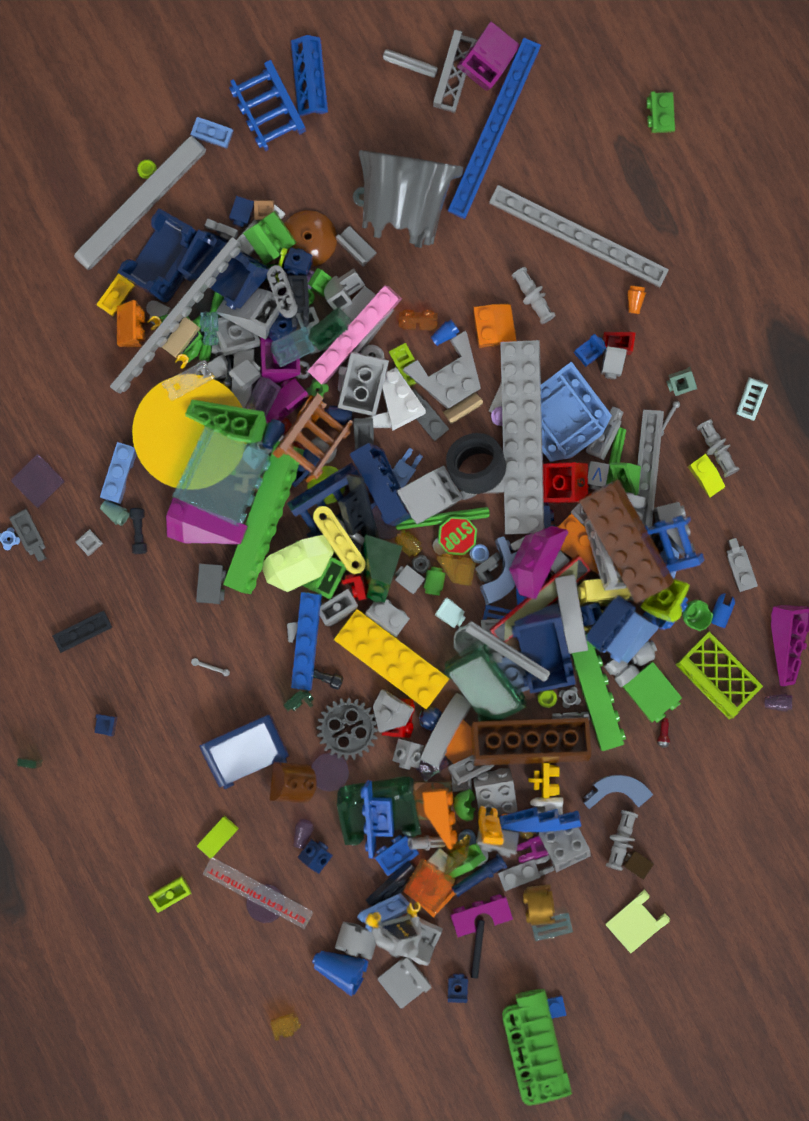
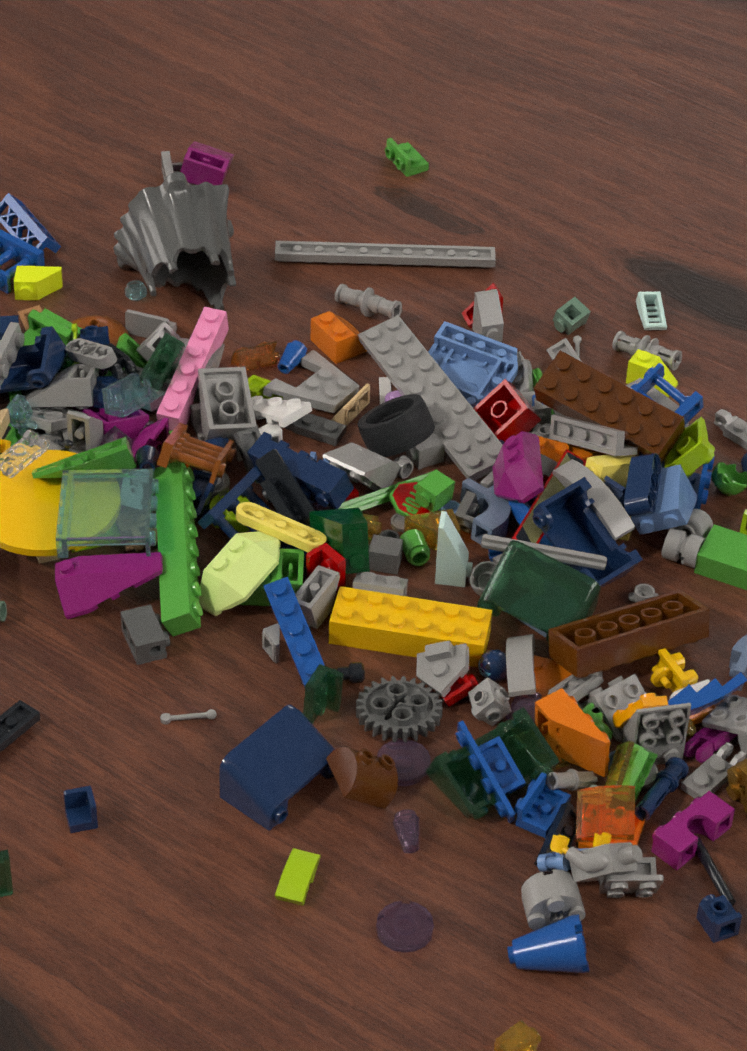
camera: 25 degrees left, 45 degrees down
(139, 545) = (34, 631): black piece -> none
(169, 894) = (266, 958): lime brick -> none
(258, 892) = (388, 909): clear tile -> none
(286, 155) = (36, 281): none -> neon yellow slope
(315, 855) = (439, 842): dark blue brick -> none
(404, 982) = (646, 930): light grey bracket -> none
(410, 63) = (118, 194): light grey axle -> none
(470, 542) = (434, 491): none -> bright green brick
(494, 128) = (245, 212): blue plate -> none
(547, 698) = (616, 601): lime plate -> none
(590, 350) = (461, 316): blue bracket -> none
(598, 699) = (668, 574): bright green brick -> none
(635, 298) = (475, 275): orange cone -> none

